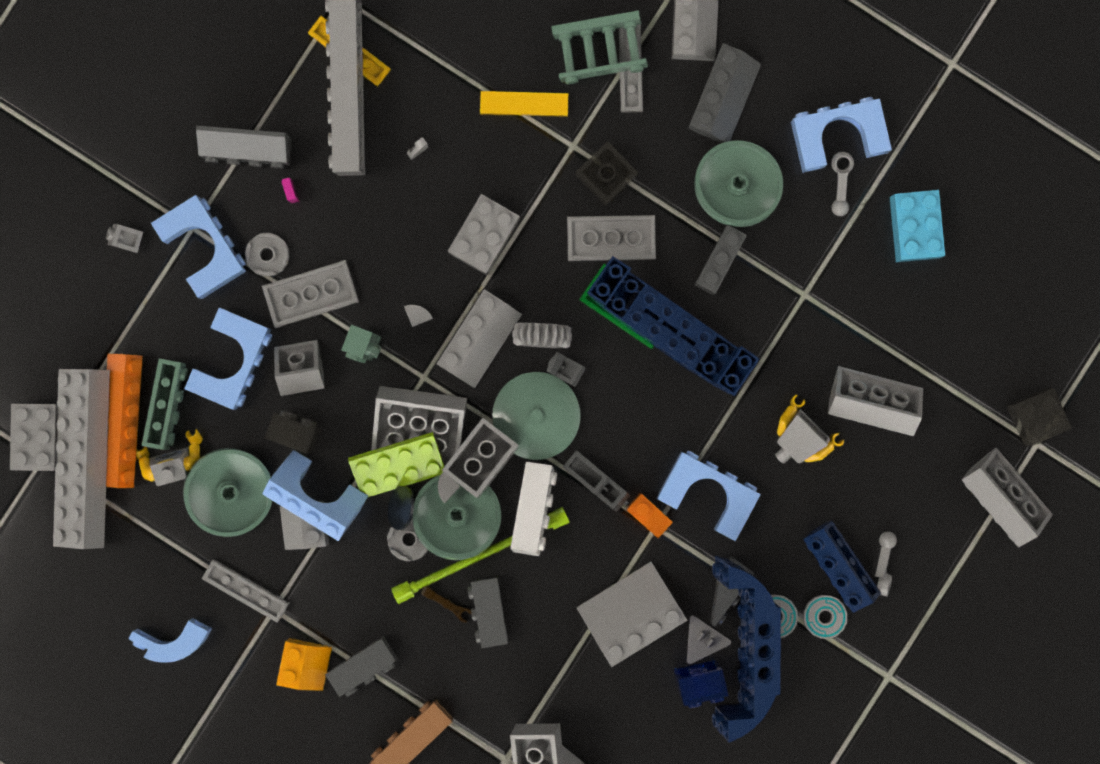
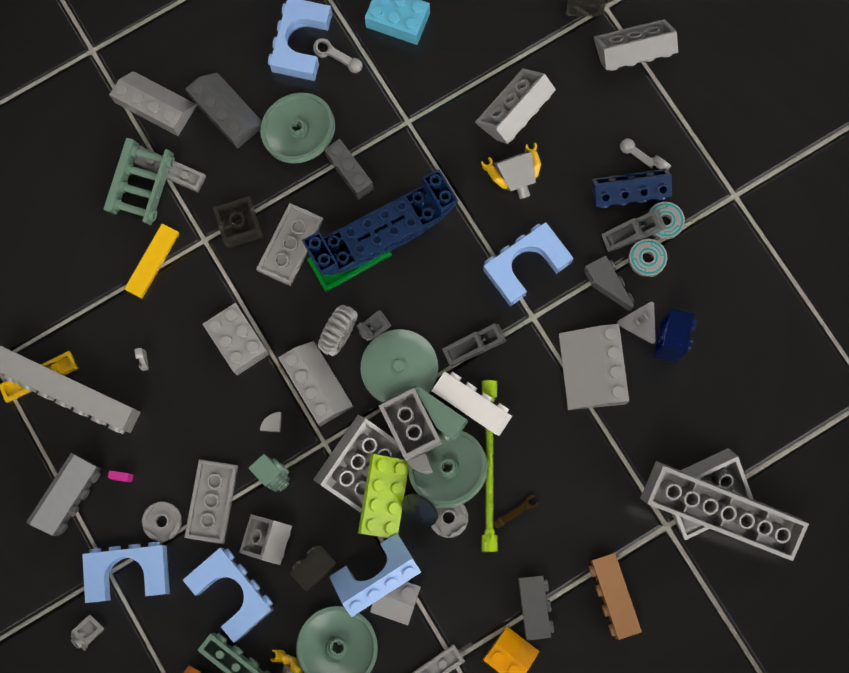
camera: 60 degrees left, 10 degrees down
(488, 612) = (538, 481): dark grey brick -> none
(503, 489) = (445, 419): none -> sand green slope
(649, 515) = (520, 316): orange slope -> none
(758, 652) = (670, 280): dark blue slope -> none
(796, 589) = (633, 230): none -> dark grey slope

